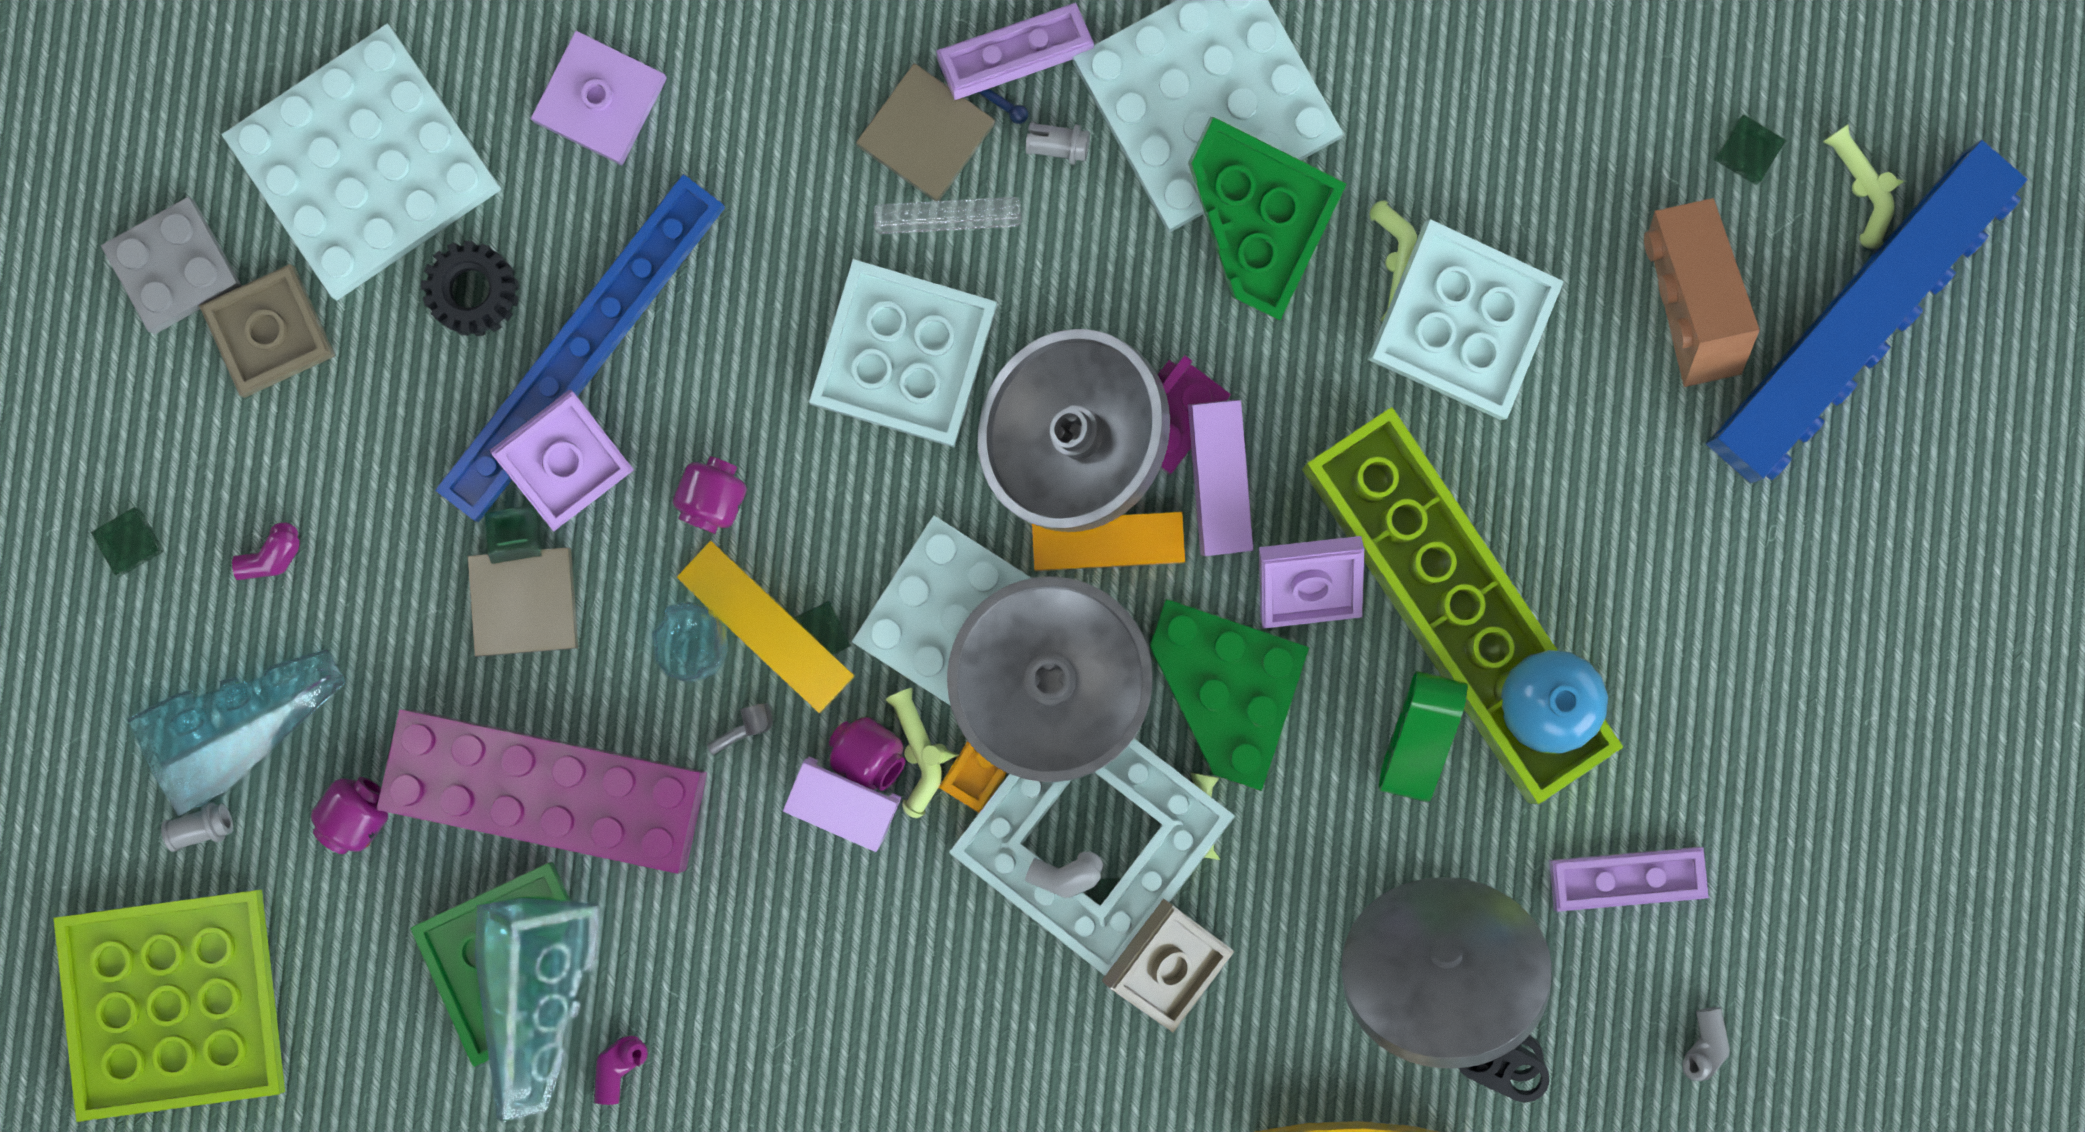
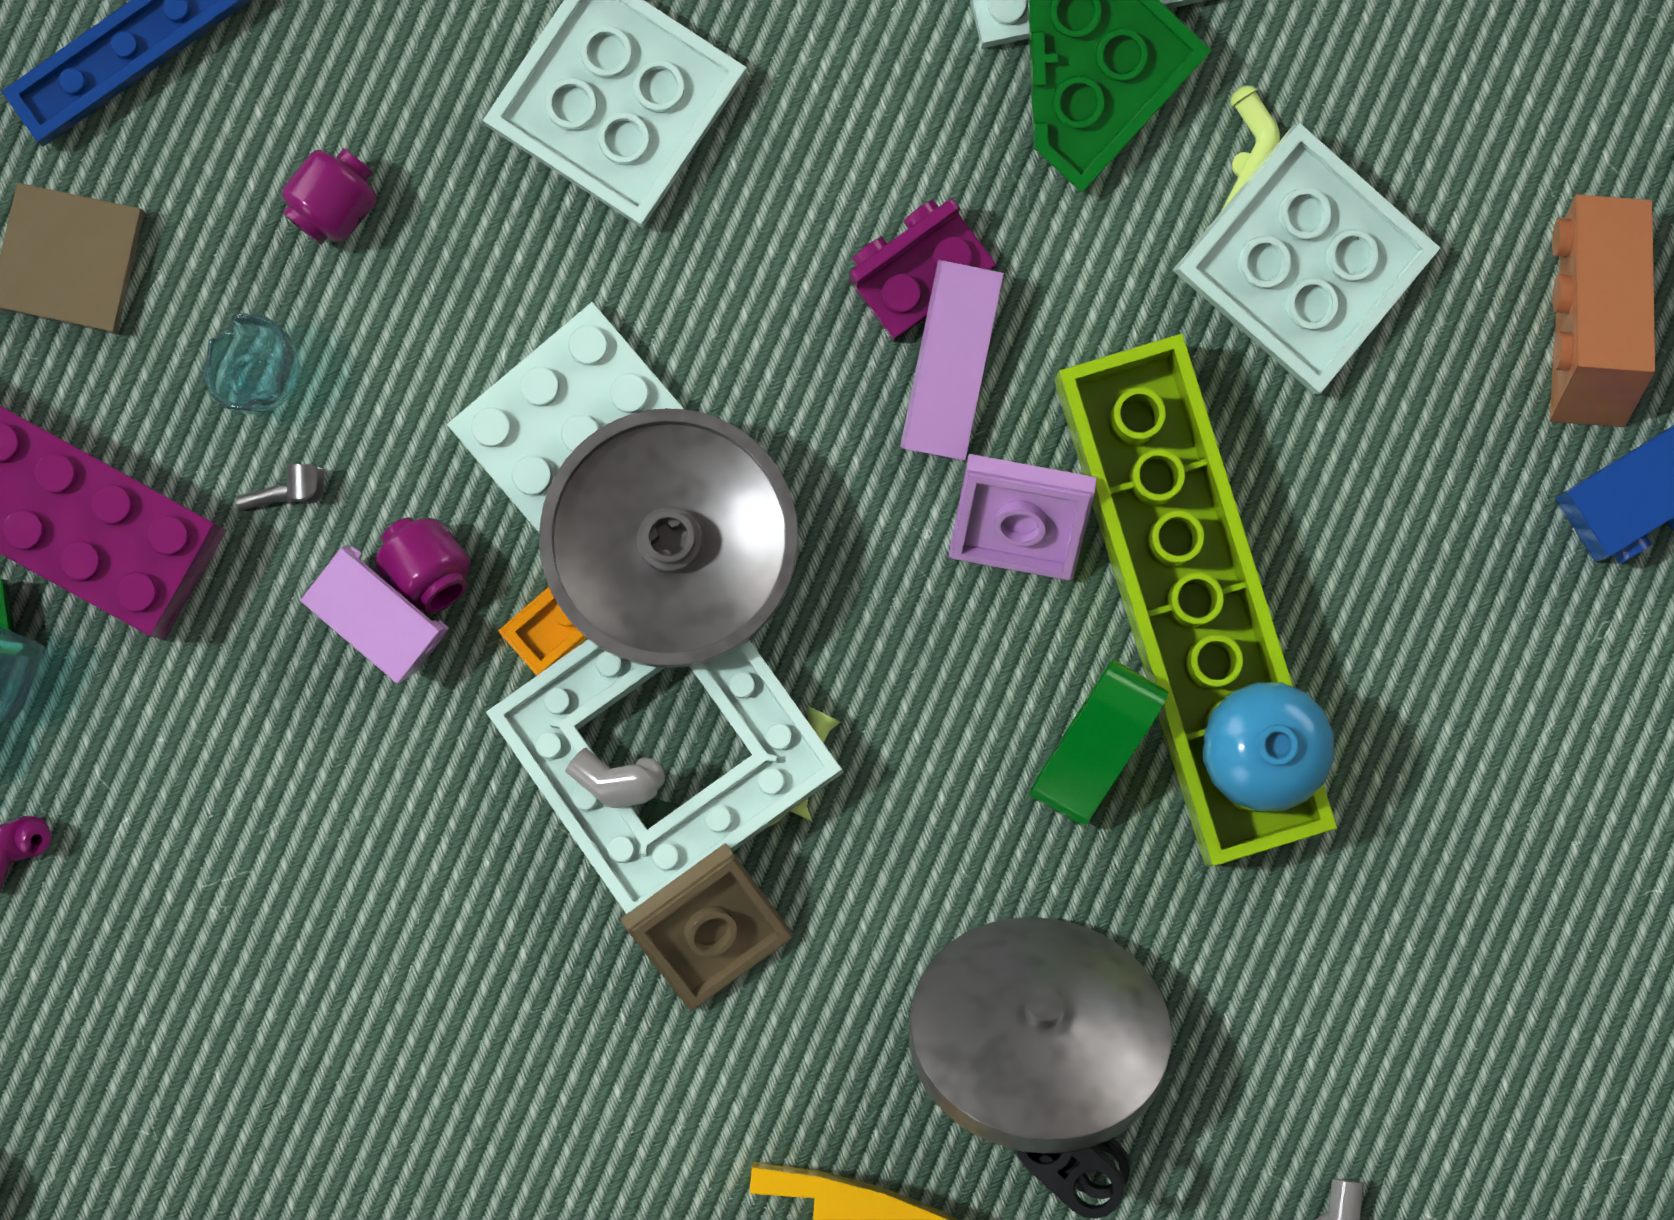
camera: 15 degrees right, 0 degrees up
(512, 534) = (79, 173): clear green tile -> none
(561, 460) = (164, 100): lavender plate -> none
(765, 627) = (348, 375): yellow slope -> none
(825, 627) = (409, 404): clear green tile -> none
(919, 751) = (488, 581): yellowish green piece -> none
(1073, 430) = (789, 248): flat silver dish -> none
(1122, 542) = (793, 397): light orange tile -> none
(1229, 687) = (885, 616): green plate -> none
(1628, 879) = (1299, 994): lavender tile -> none

